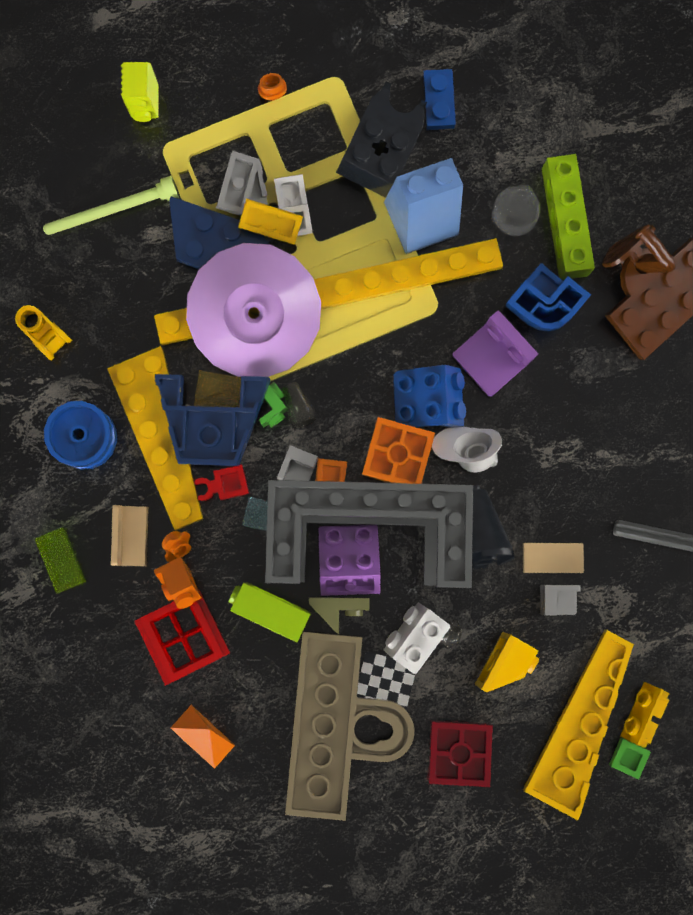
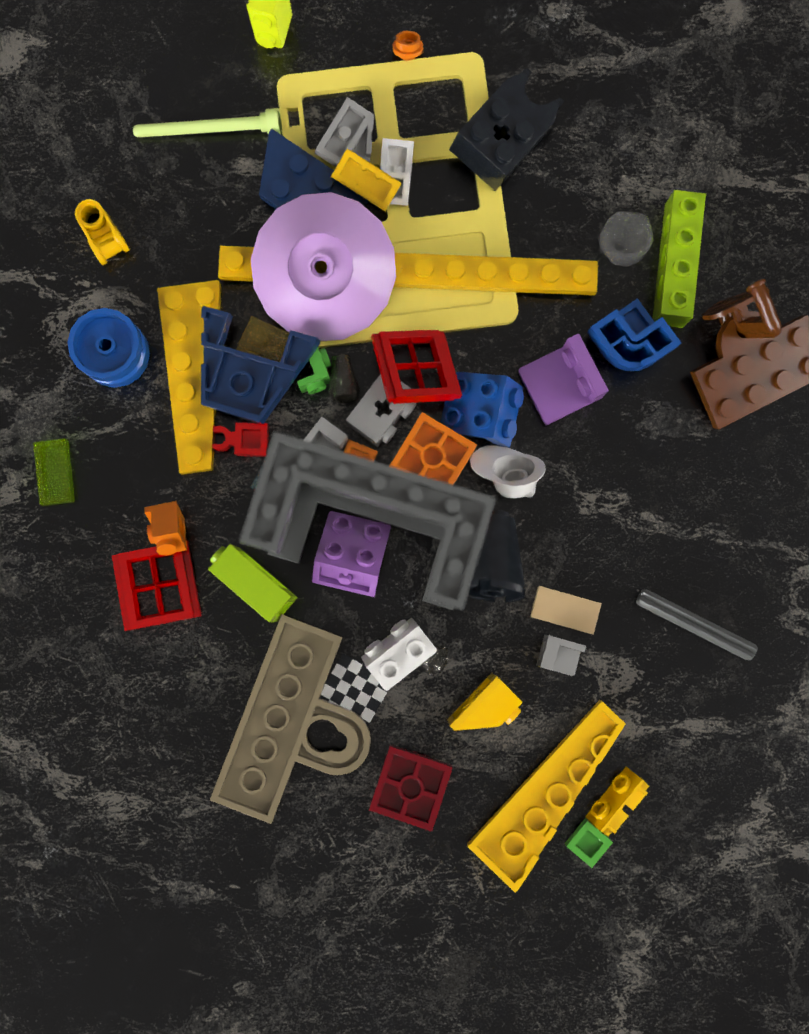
camera: 20 degrees right, 0 degrees up
(129, 536) = (130, 465): tan panel -> none
(176, 545) = (176, 488): orange plate -> none
(202, 736) = (148, 694): orange slope -> none
(329, 608) = (317, 597): olive slope -> none
(338, 386) = (389, 368): none -> red piece
(341, 405) = (365, 417): none -> light grey brick
(426, 205) = (533, 204): medium blue slope -> none
(439, 99) = (577, 104): blue plate -> none

